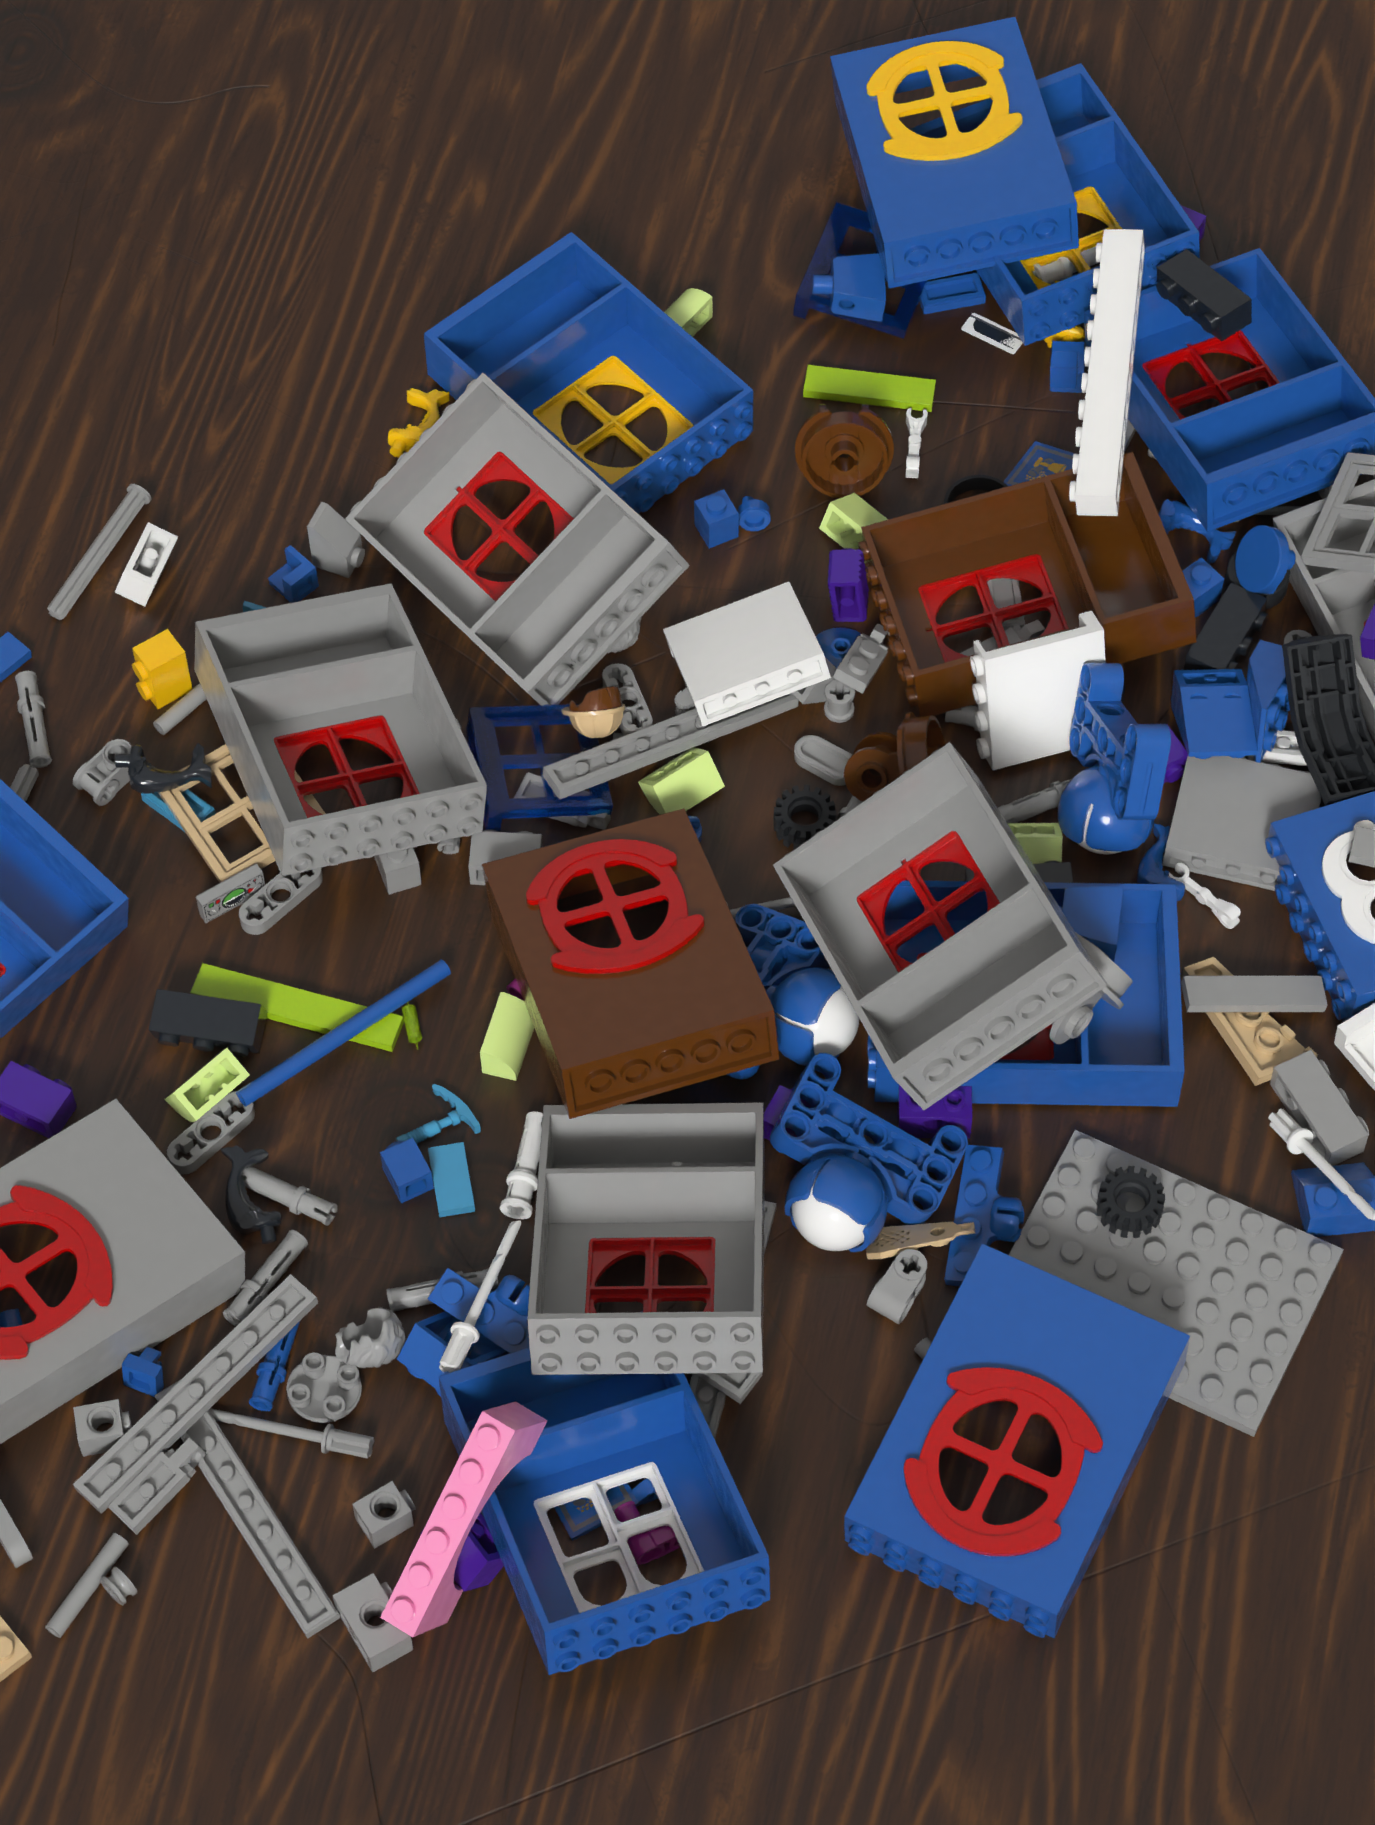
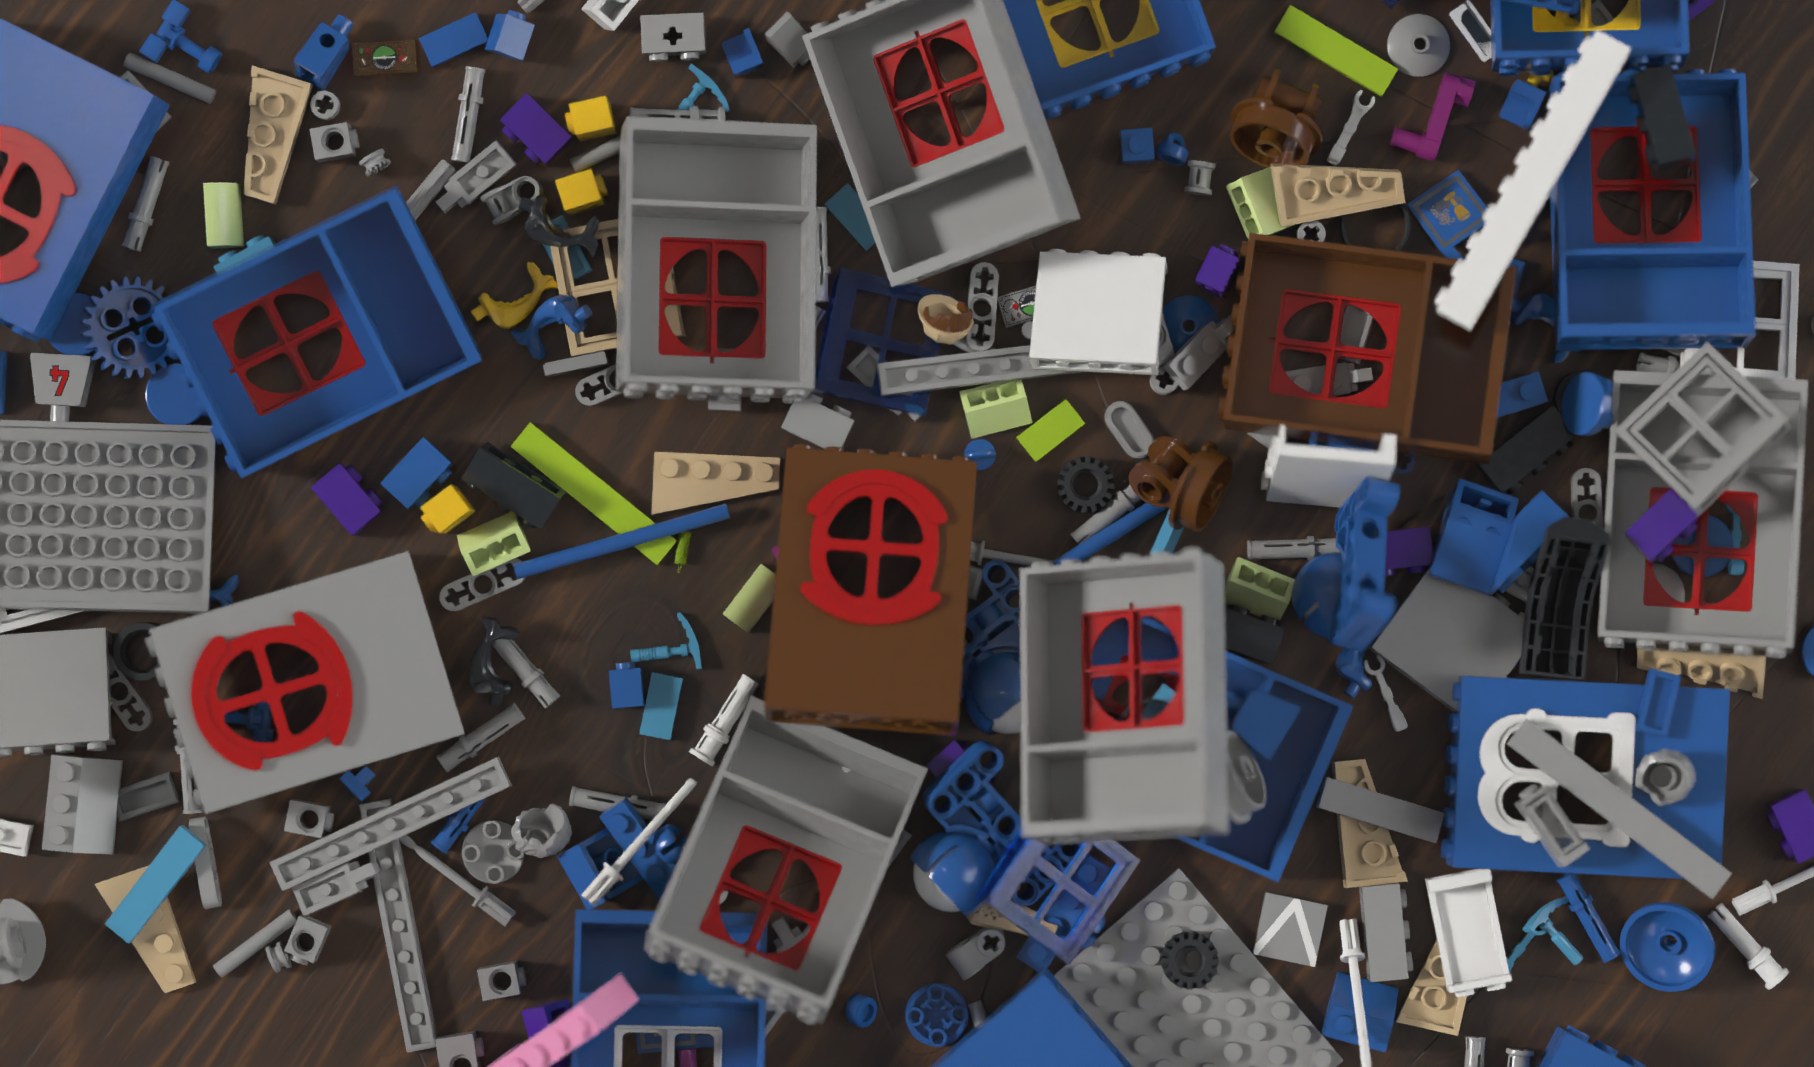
camera: 20 degrees right, 30 degrees up
(50, 635) = (510, 35): none -> brick
(57, 771) = (476, 177): none -> light grey hinge
(100, 1050) = (418, 474): none -> blue brick
(109, 706) = (536, 130): none -> dark purple brick
(141, 1539) = (317, 929): none -> light grey brick
(142, 877) = (510, 314): none -> yellow animal
(145, 1062) = (446, 510): none -> yellow brick
(174, 732) = (581, 191): none -> yellow brick
(188, 842) = (559, 309): none -> blue animal
(216, 582) = (687, 25): none -> light grey brick
(400, 954) = (700, 479): none -> tan wing
(467, 674) = (850, 213): none -> dark azure tile
(661, 692) = (1017, 306): none -> tile
(746, 787) = (1050, 430): none -> lime tile
(790, 526) = (1199, 178): none -> light grey bush
(800, 1395) = (861, 1010): none -> blue tile
(883, 1370) = (936, 1014): none -> blue tile
(906, 1139) = (1016, 864): none -> clear blue window
(924, 480) = (1324, 192): none -> tan wing
(948, 370) = (1409, 58): none -> light grey dish
(995, 380) = (1451, 91): none -> magenta beam
(1221, 1147) = (1290, 929): none -> light grey tile

